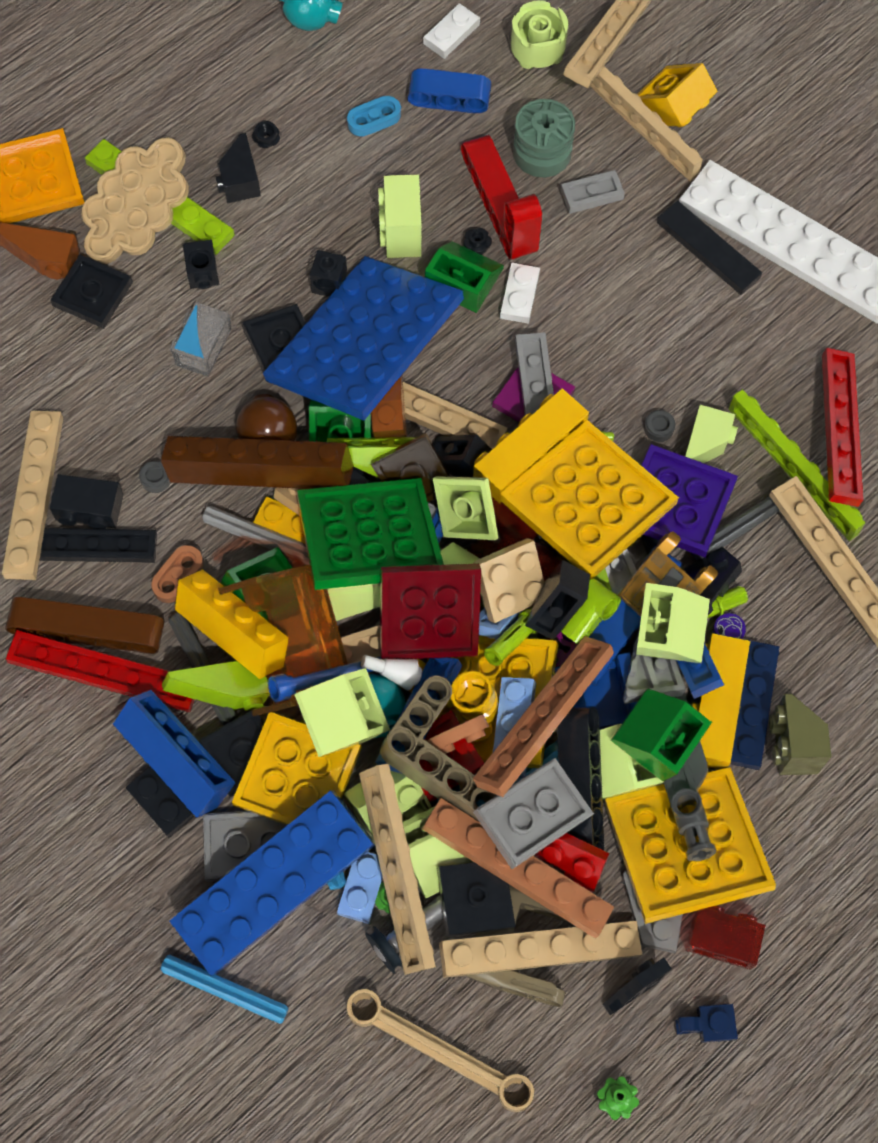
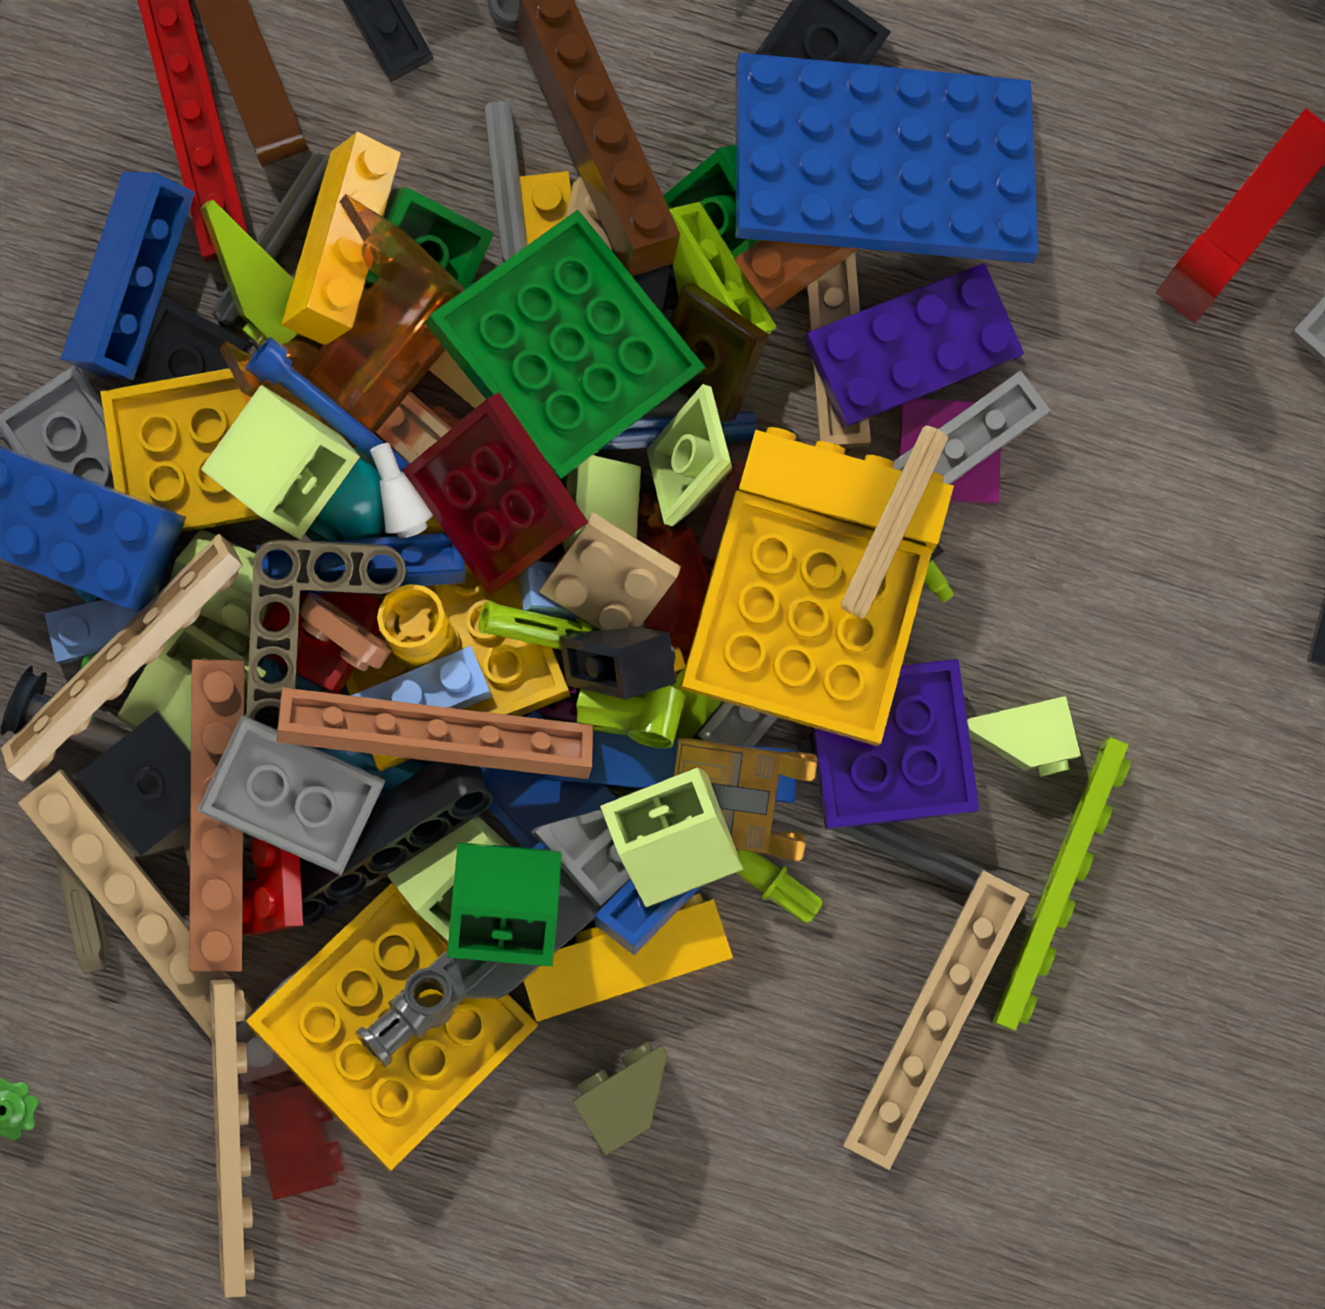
camera: 60 degrees right, 15 degrees up
(159, 802) = (57, 296): black plate -> none
(174, 571) = (386, 120): nougat plate -> none
(266, 420) = (671, 105): reddish brown brick -> none
(327, 273) = (965, 45): black brick -> none
(400, 216) = (1118, 93): yellowish green brick -> none
(460, 453) = (787, 394): black slope -> none
(465, 271) = (1085, 237): green slope -> none
(469, 381) = (913, 345): none -> dark purple plate
(477, 246) = (1153, 238): black plate -> none
(520, 293) = (1109, 337): white plate -> none
(566, 423) = (894, 521): none -> tan axle
(644, 978) = (171, 1062): black wing -> none
(659, 426) = (1011, 656): dark grey tile -> none
(705, 971) = (232, 1160): none -> tan plate
(713, 1023) = (177, 1183): dark blue plate -> none
(727, 568) = (828, 858): black wing -> none
(730, 625) = (747, 920): dark purple tile -> none
(755, 705) = (655, 1011): dark blue plate -> none
(842, 428) = (1155, 920): red plate -> none

